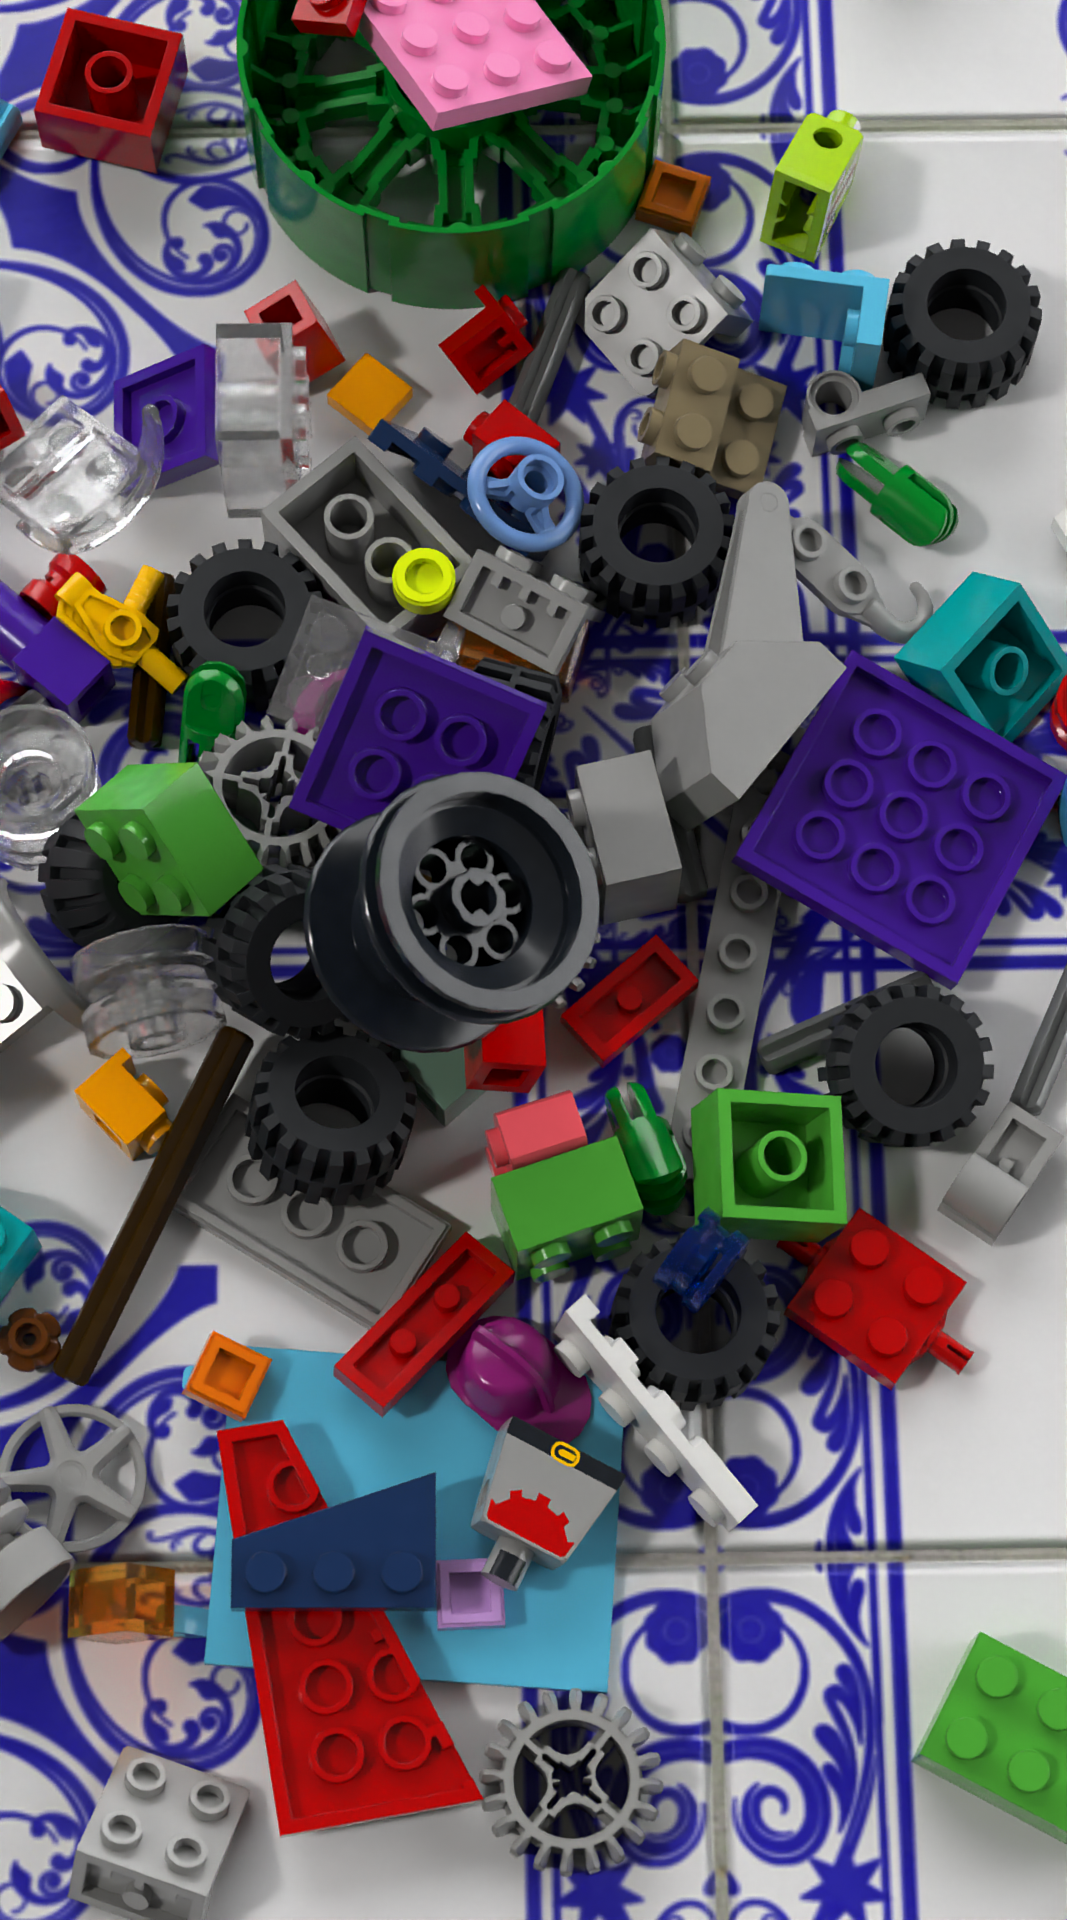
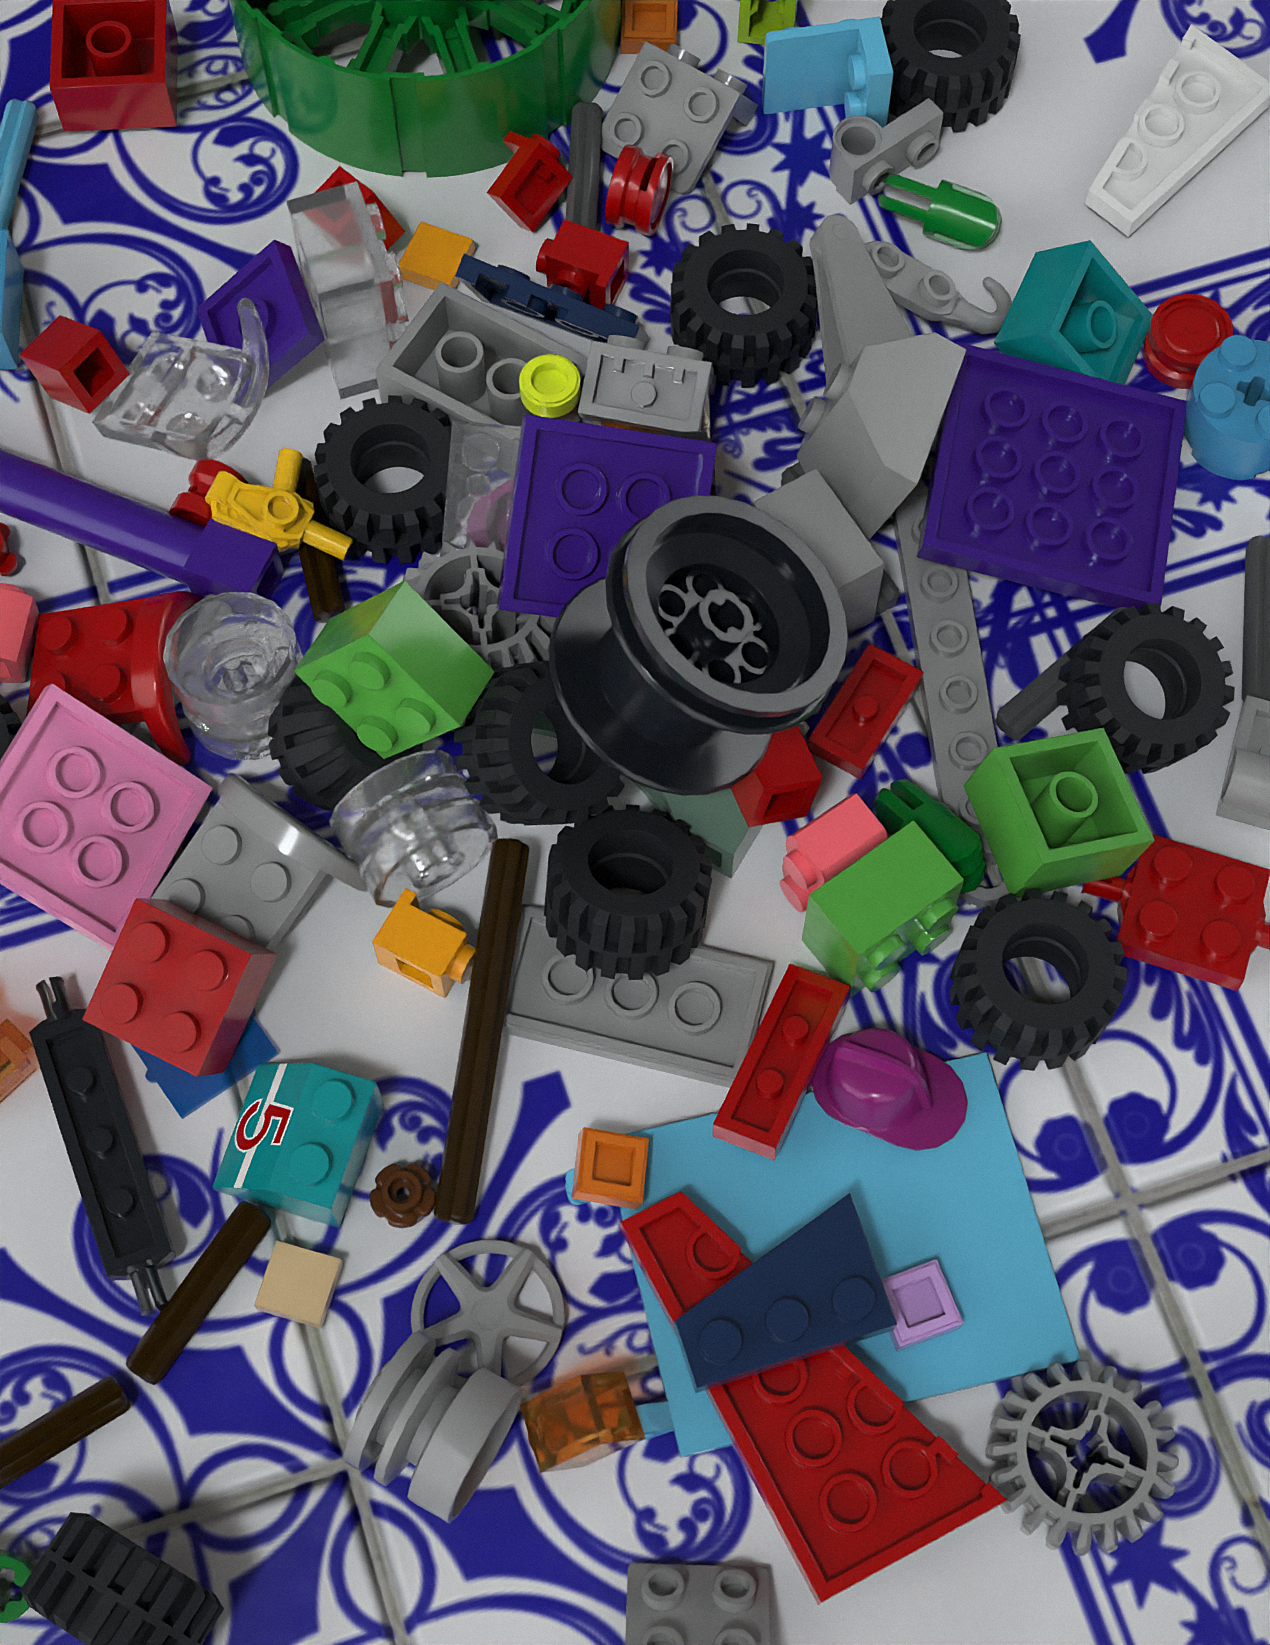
camera: 15 degrees left, 5 degrees down
(211, 706) = (386, 549): green arm -> none
(537, 1501) = (954, 1192): light grey torso -> none
(545, 474) = (618, 284): medium blue piece -> none
(594, 385) = (639, 190): none -> red wheel
(651, 1411) = (1032, 1076): white wing -> none
(695, 1255) = (1031, 907): clear blue wheel -> none
(711, 417) = (753, 182): dark tan plate -> none

